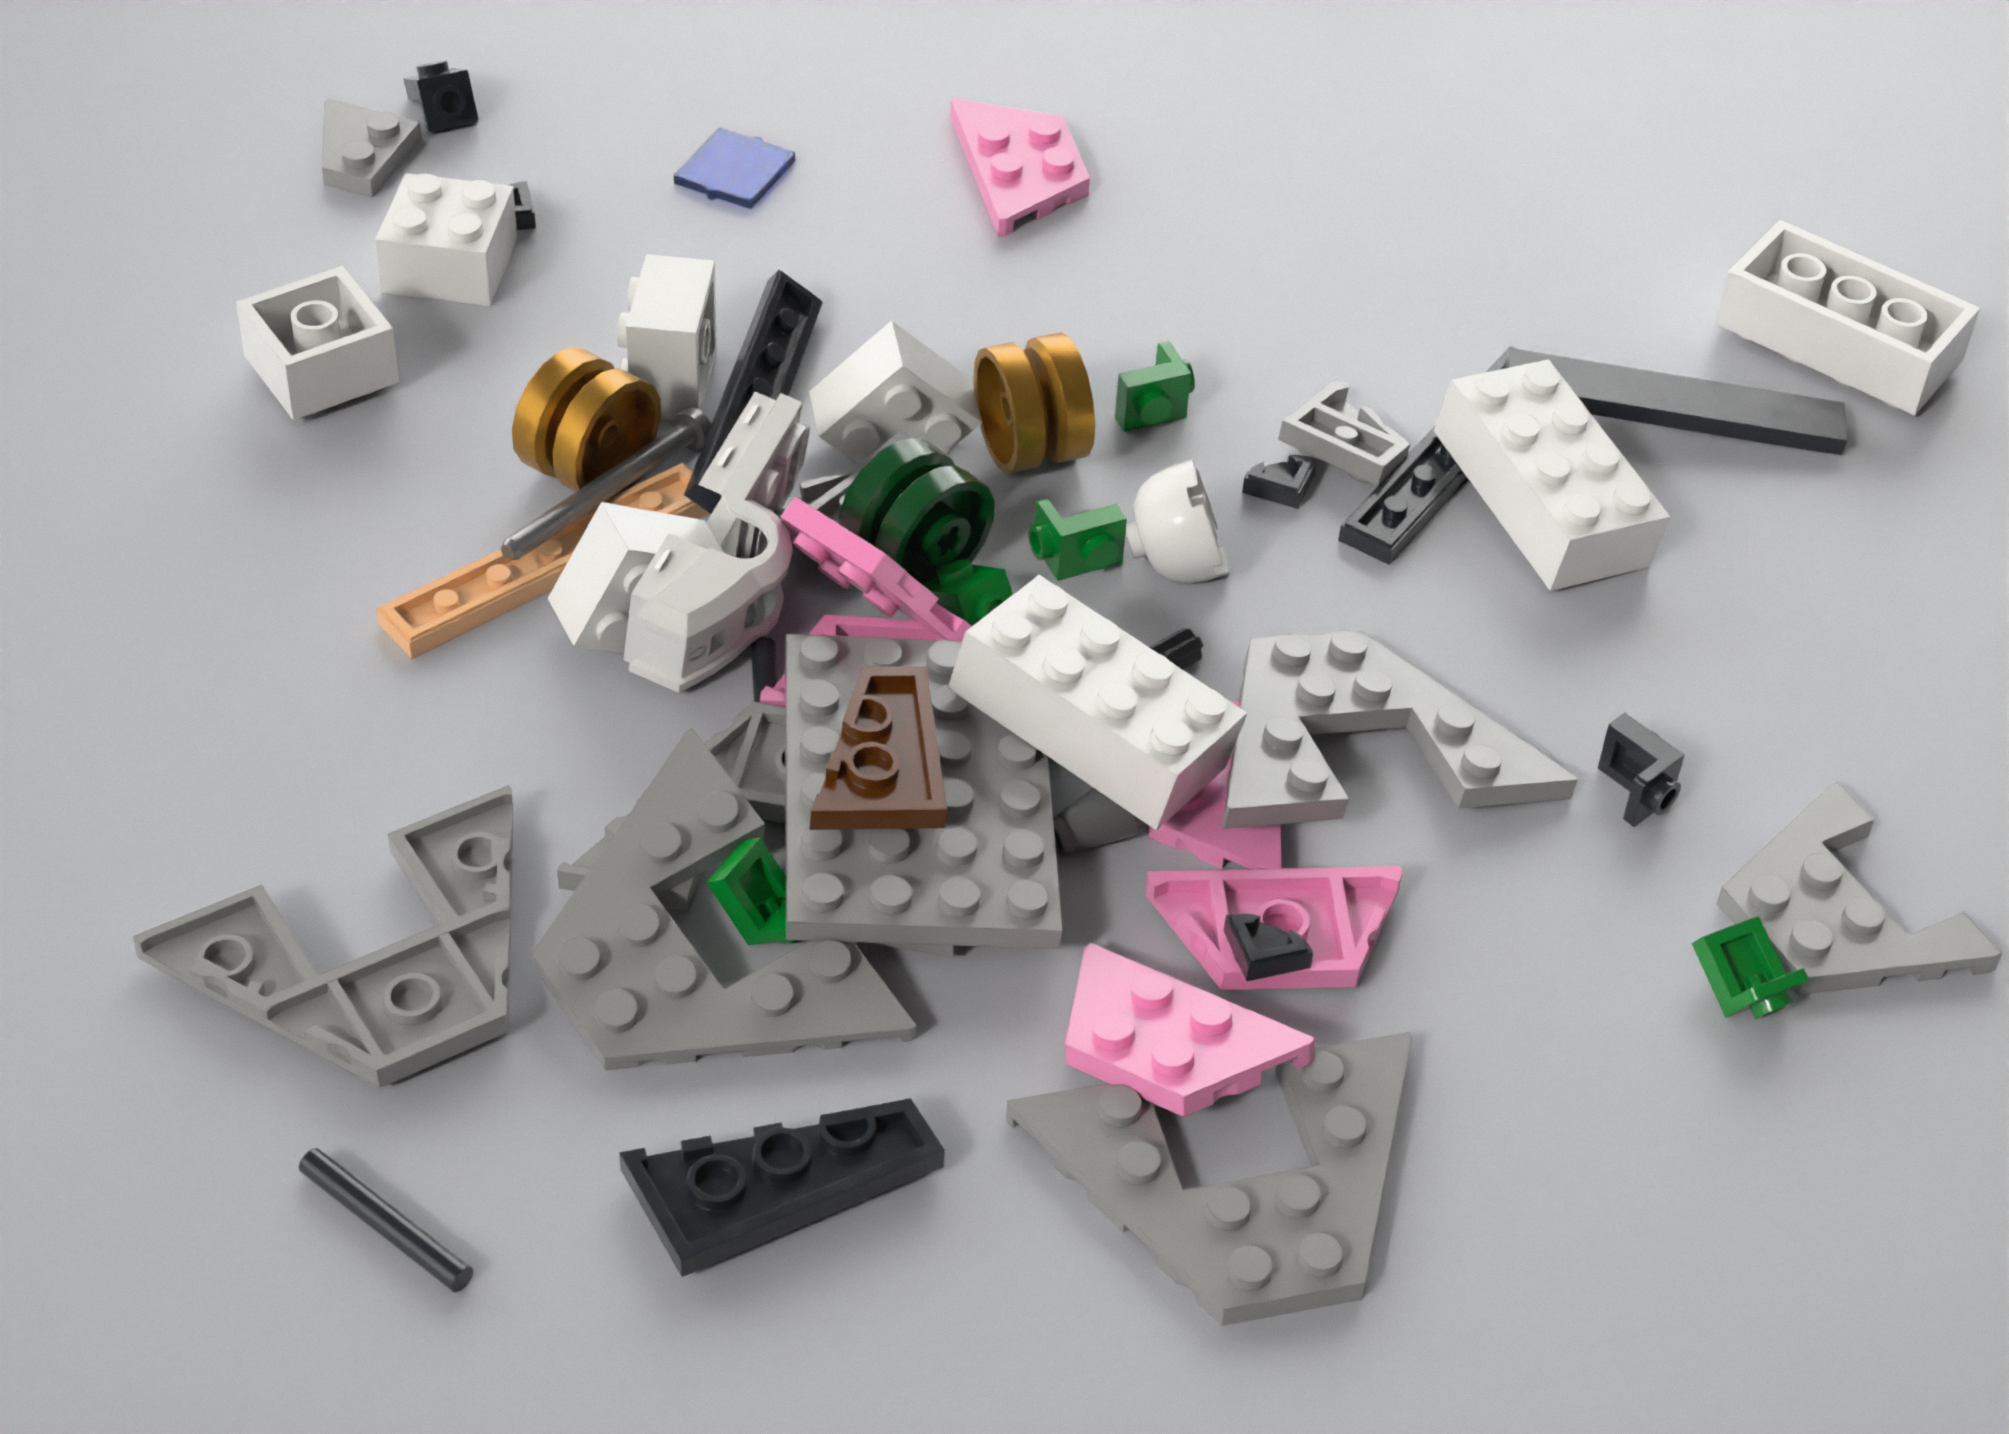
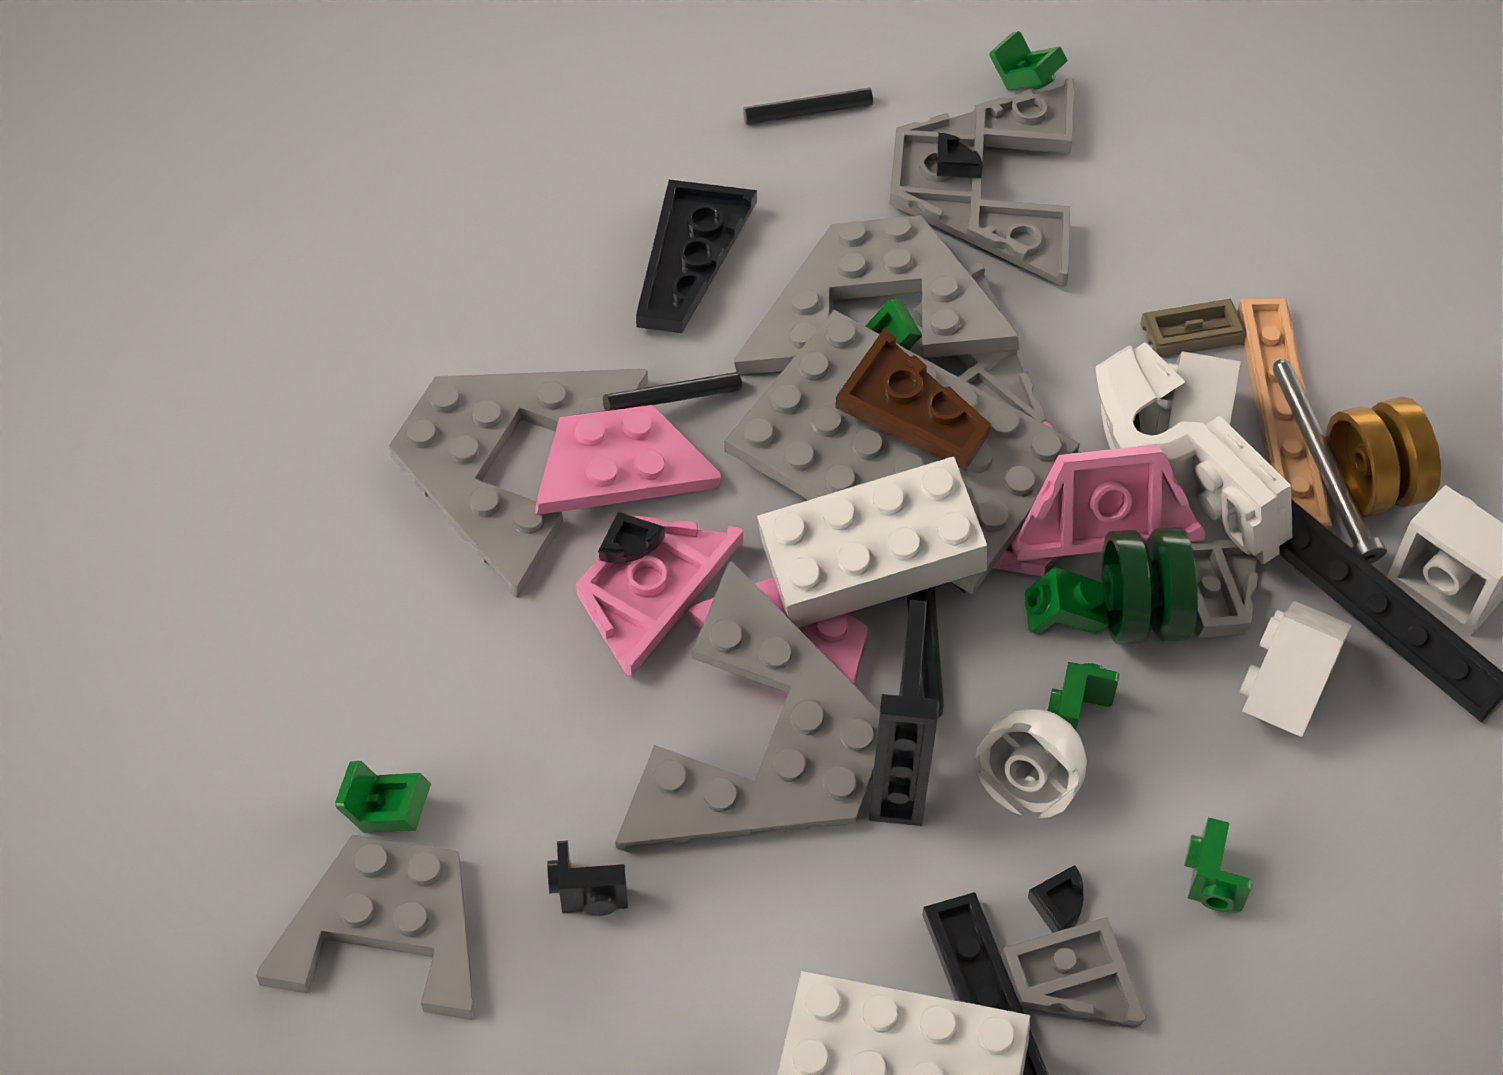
camera: 130 degrees right, 10 degrees up
(136, 995) = (1024, 68): none -> green bracket
(398, 969) = (956, 159): none -> black tile
(474, 677) = (1195, 333): none -> dark tan tile
(1022, 1049) = (673, 391): none -> black bar
(1034, 402) = (1228, 736): pearl gold wheel -> none
(1320, 552) = (905, 737): none -> black fence

